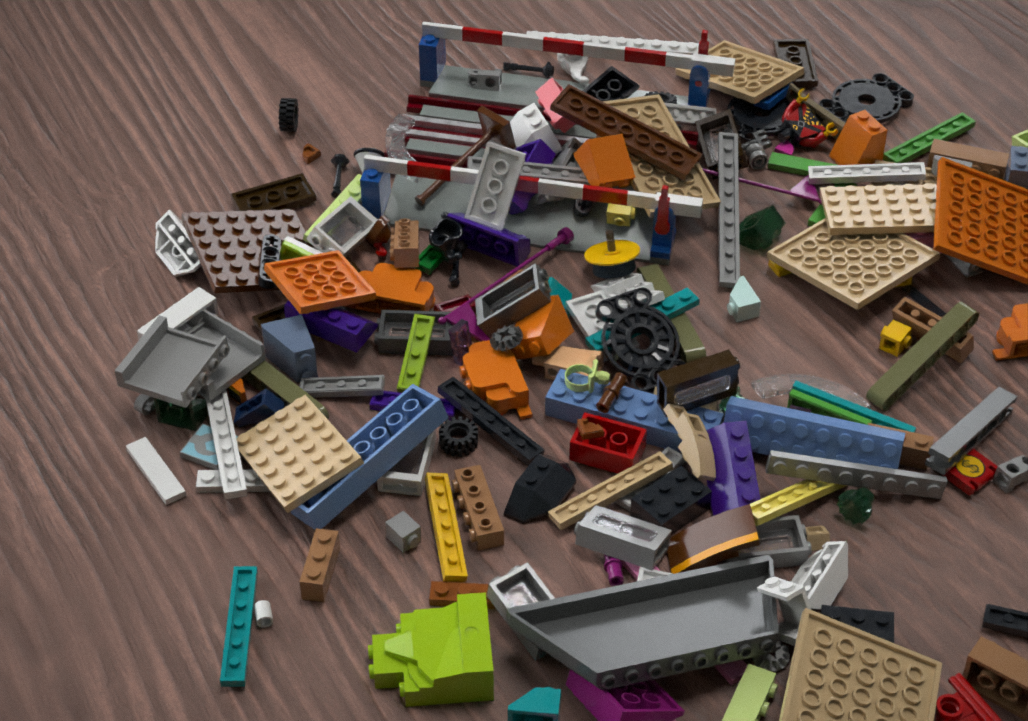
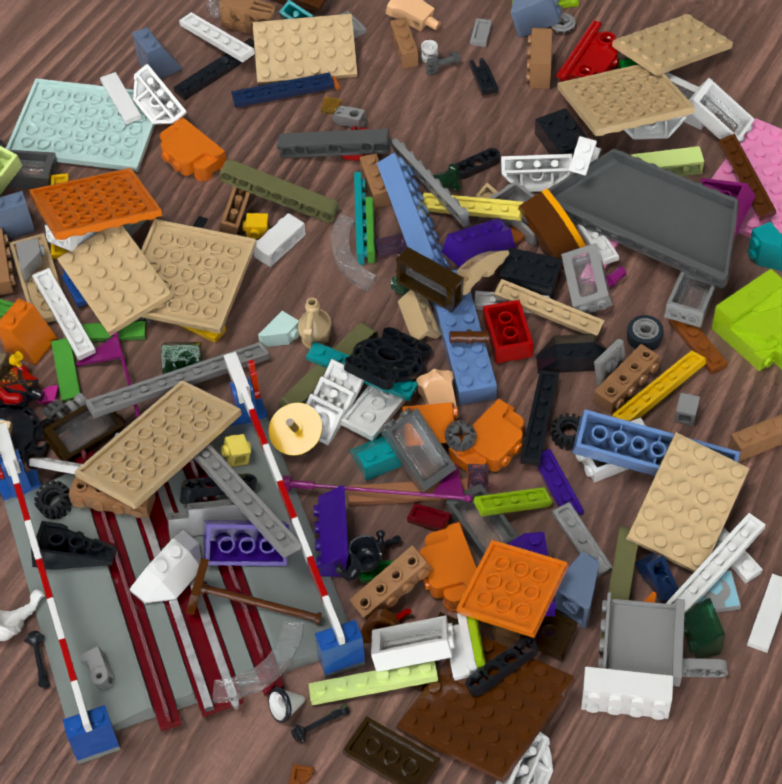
camera: 120 degrees left, 10 degrees up
(170, 363) = (688, 633): light grey panel -> none
(495, 185) = (307, 511): white plate -> none
(500, 490) = (609, 361): none -> light grey tile
(522, 549) = (645, 331): none -> wheel
(547, 94) = (123, 563): coral brick -> none
(589, 430) = (514, 335): dark orange tile -> none
(594, 376) = (460, 352): yellowish green piece -> none
(605, 161) = (208, 459): orange slope -> none
(638, 137) = (159, 461): reddish brown plate -> none
(722, 315) = (314, 324): none -> tan piece
(864, 345) = (279, 240): none -> white brick
(867, 556) = (488, 159): none -> black beam

